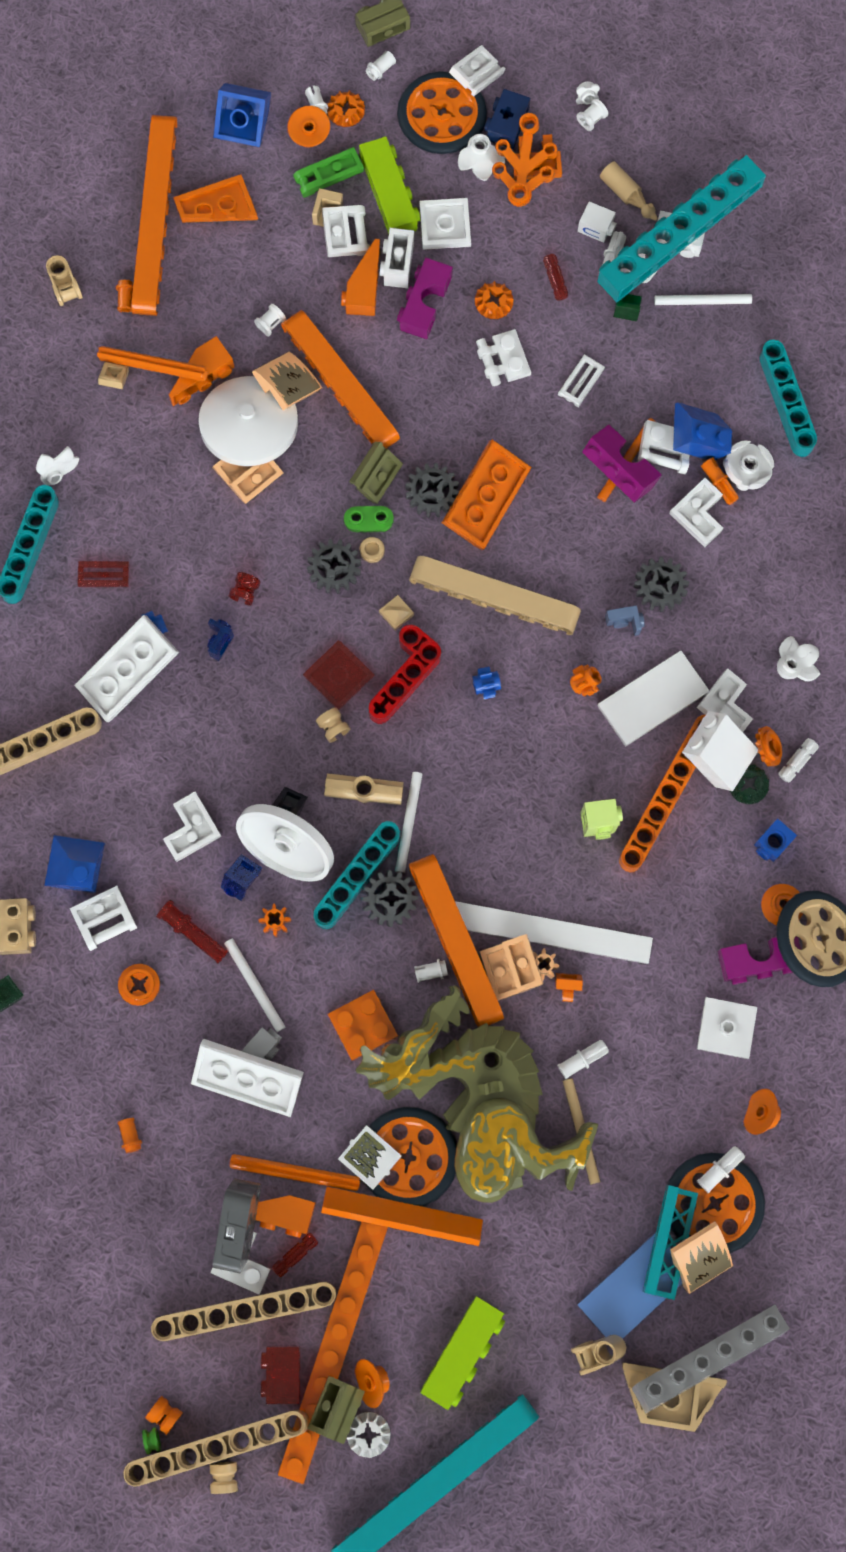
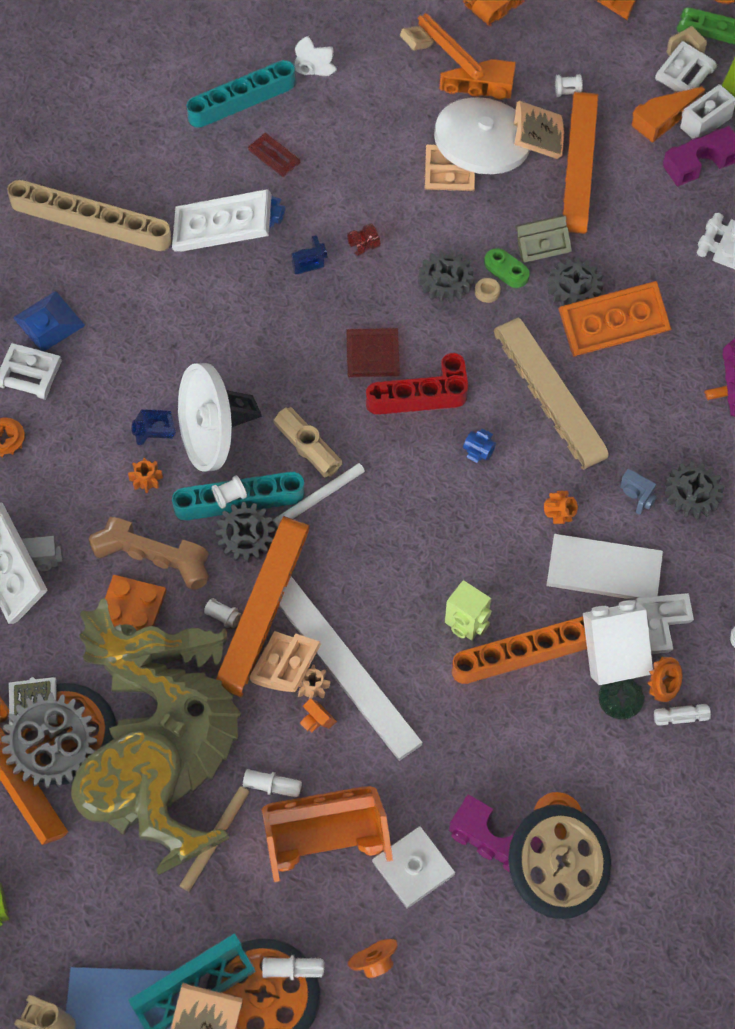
camera: 45 degrees right, 15 degrees down
(183, 924) = (78, 422): clear red pin -> none
(198, 828) = (154, 370): white plate -> none
(254, 985) = (83, 510): white bar -> none
(301, 983) = (120, 536): none -> medium nougat plate
(332, 724) = (332, 378): tan wheel -> none
(356, 882) = (229, 491): none -> white bush
(396, 612) = (462, 344): tan tile -> none
(435, 1181) = (36, 717): none -> light grey gear
(644, 1052) = (325, 824): none -> orange windscreen
(779, 831) = (606, 747): blue brick -> none

